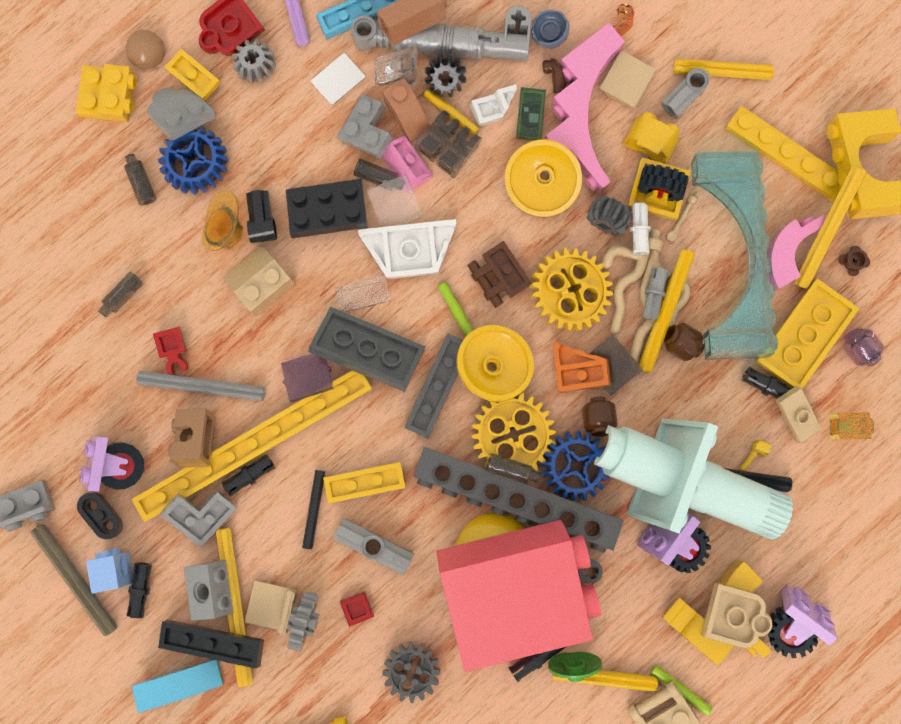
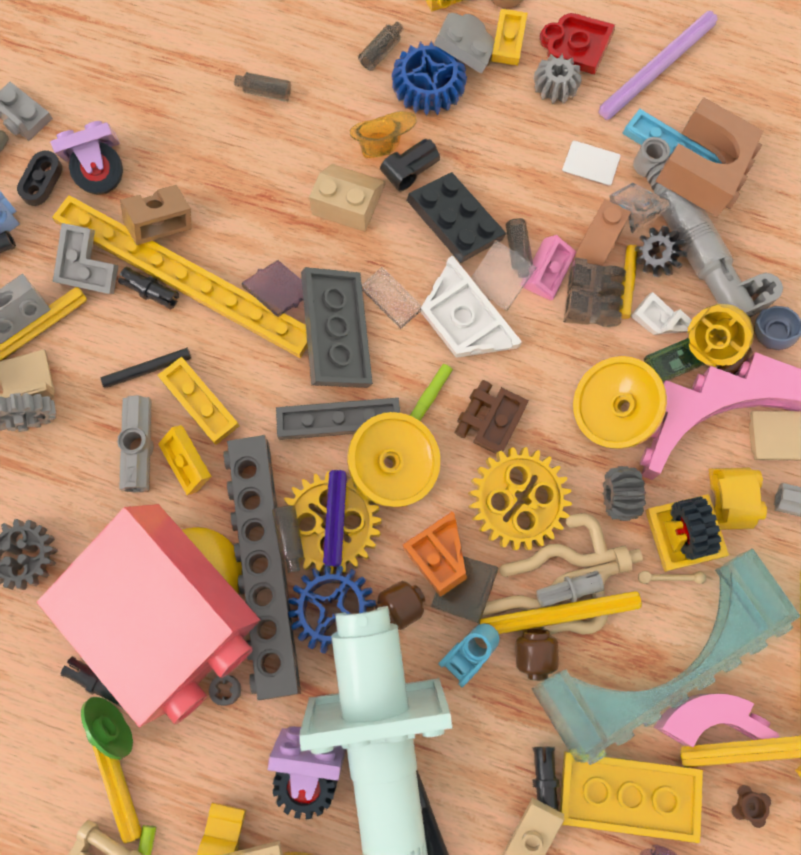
camera: 60 degrees right, 10 degrees down
(170, 345) = (238, 152): red plate -> none
(200, 385) = (215, 201): light grey axle -> none
(356, 608) = (63, 464): red tile -> none
(360, 128) = (554, 206): light grey plate -> none
(406, 516) = (184, 460): none -> yellow plate
(516, 428) = (335, 518): none -> dark purple axle
(536, 75) = (720, 335): none -> yellow cylinder
(640, 229) = (630, 533): white axle -> none
(659, 391) = (467, 657): none -> medium azure piece
(758, 447) = (469, 811): yellow hand -> none

